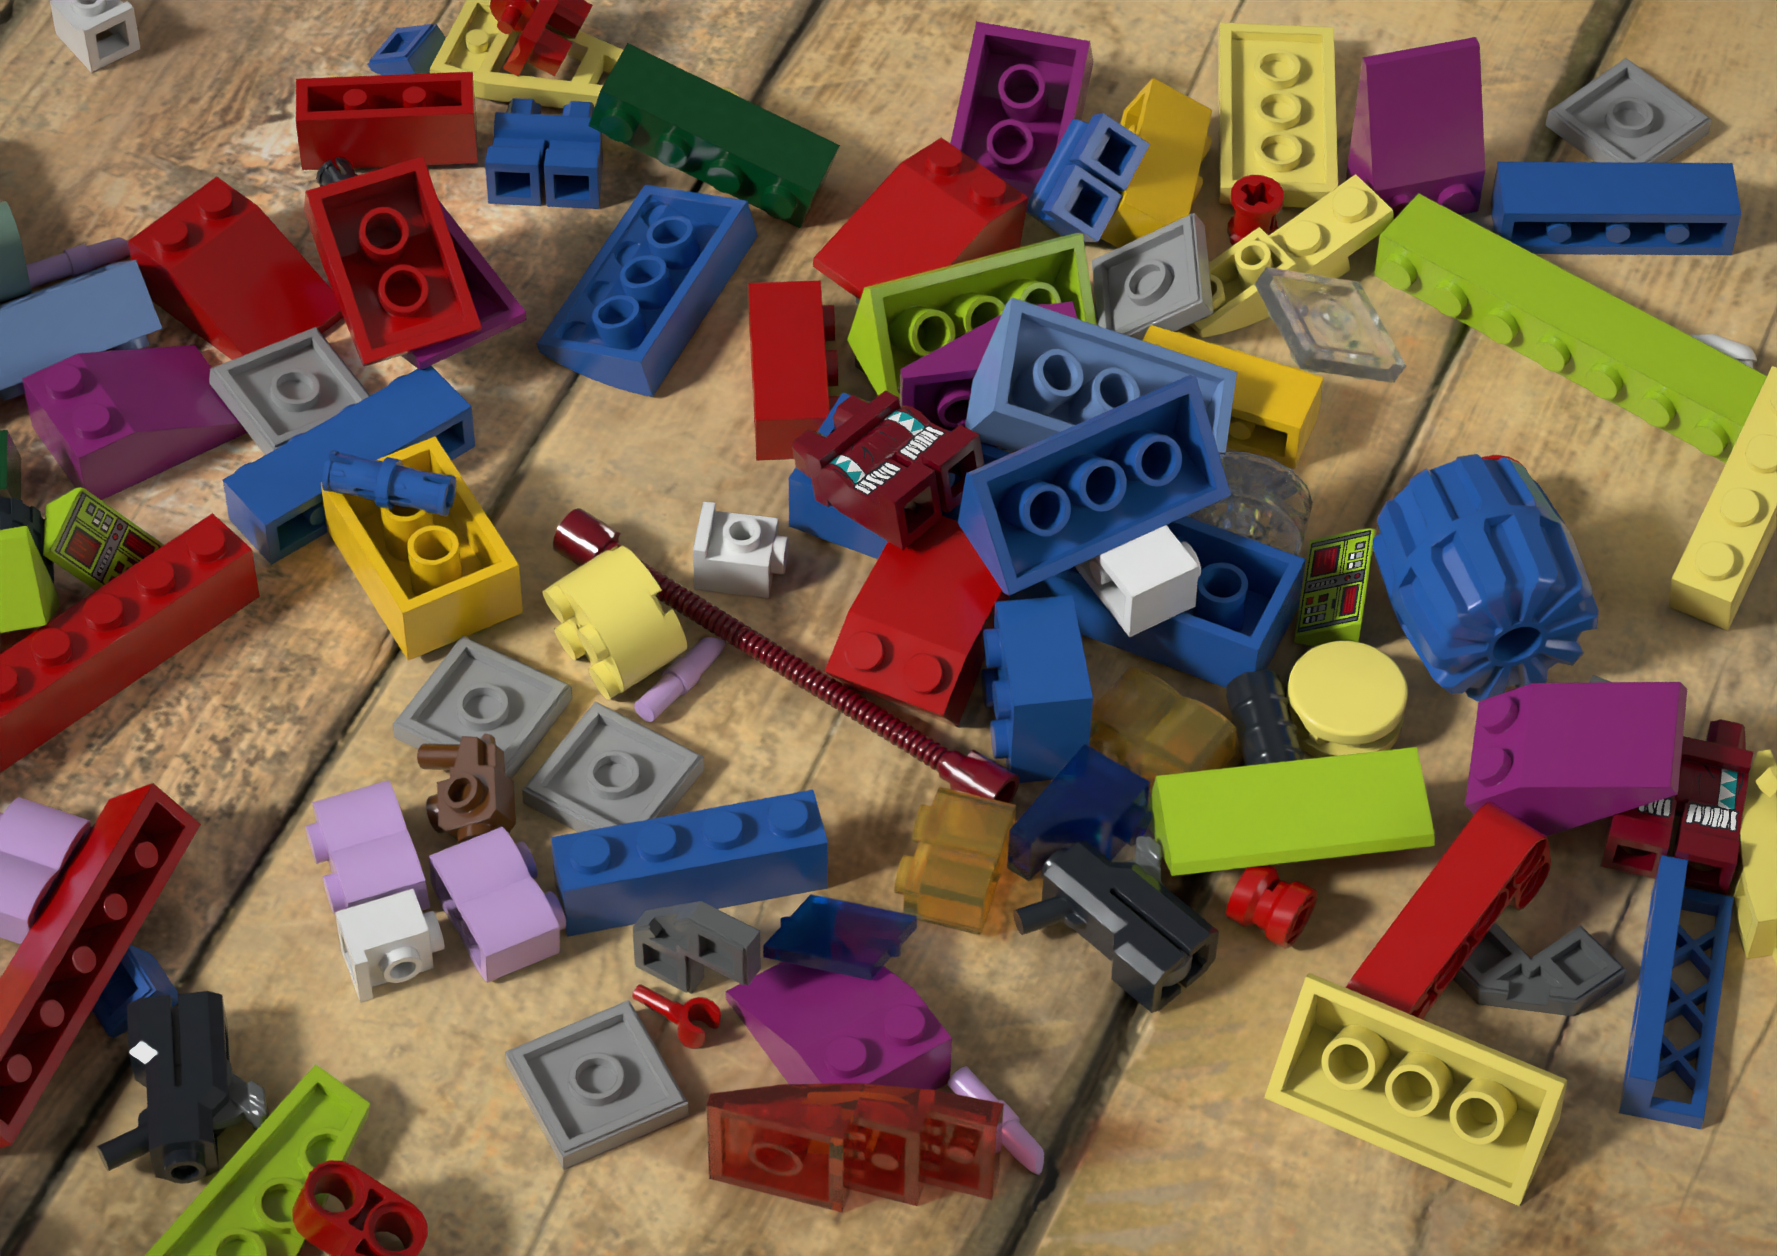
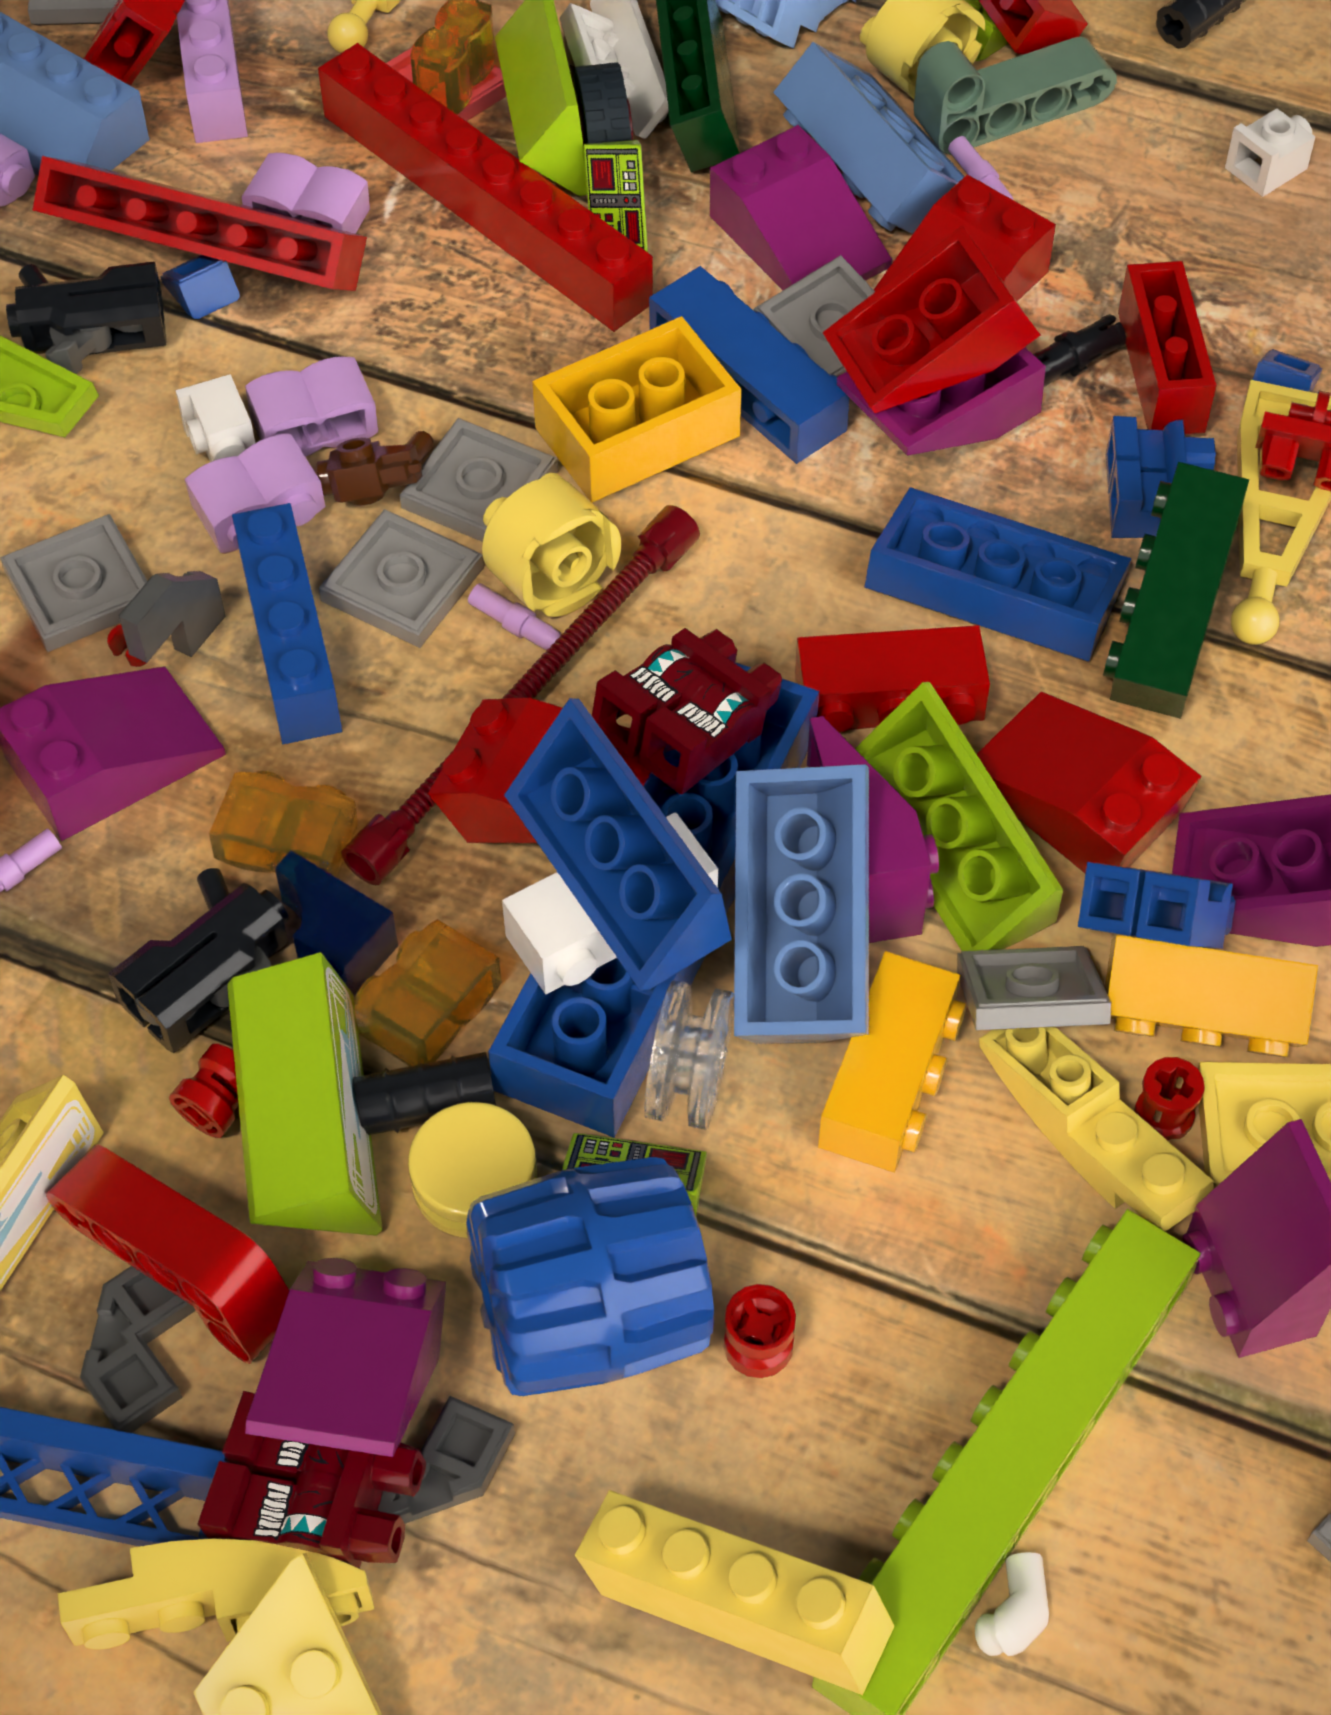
camera: 90 degrees right, 5 degrees up
(388, 483) = (667, 351): blue pin -> none
(737, 552) = (652, 625): white brick -> none
(840, 937) = (197, 735): clear blue piece -> none
(1036, 686) = (458, 866): blue brick -> none
(1329, 325) = (994, 1162): clear plate -> none
(1617, 207) = (1243, 1502): blue brick -> none

